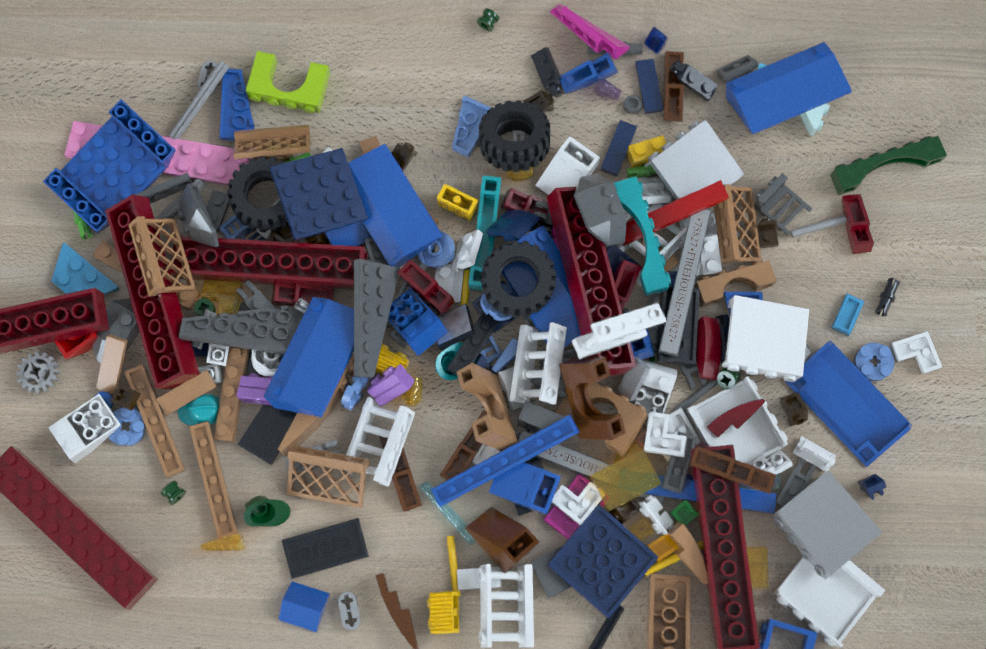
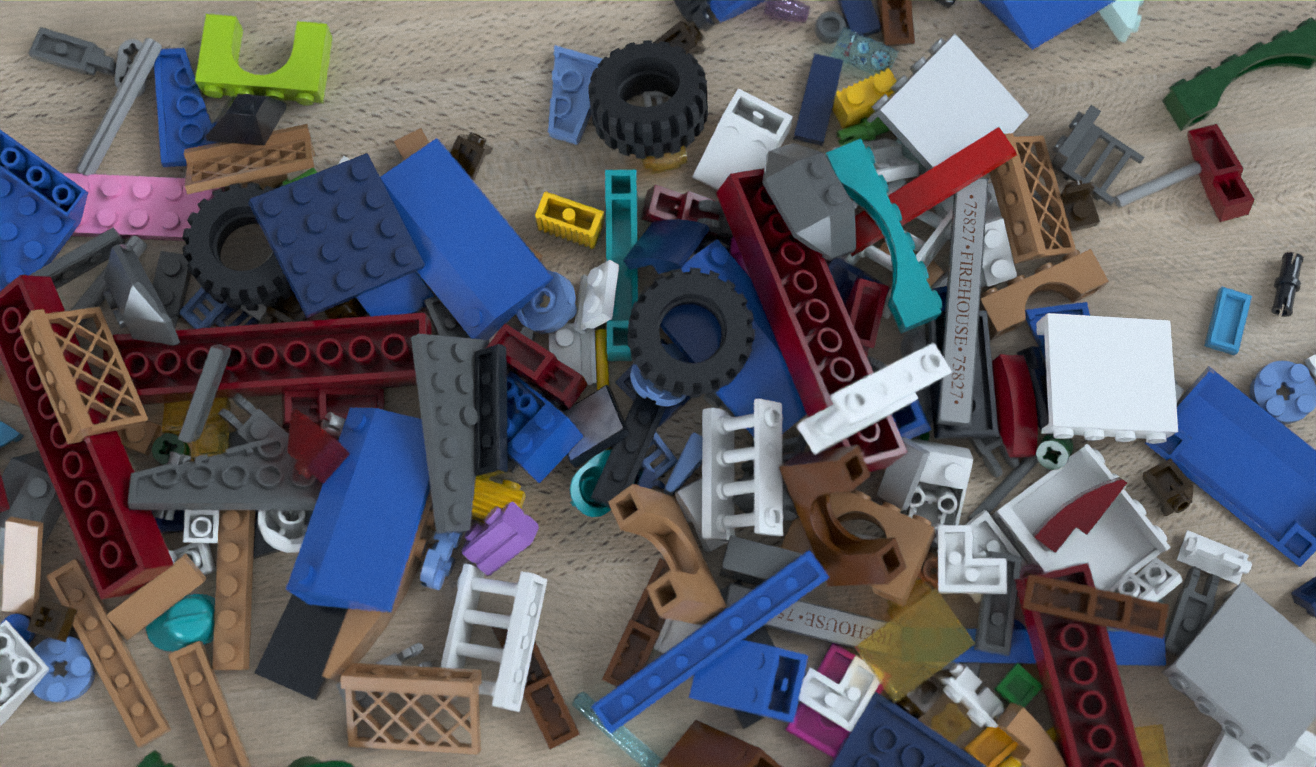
camera: 10 degrees left, 0 degrees up
(173, 64) = (71, 53): none -> dark grey hinge
(230, 277) = (205, 393): none -> dark grey tile
(253, 389) = (268, 575): medium lavender brick -> none
(273, 118) = (247, 120): none -> black slope
(289, 317) = (313, 448): none -> clear red slope
(395, 310) = (491, 411): none -> black tile
(414, 394) = (543, 546): clear yellow brick -> none
(650, 123) = (864, 52): none -> clear light blue tile

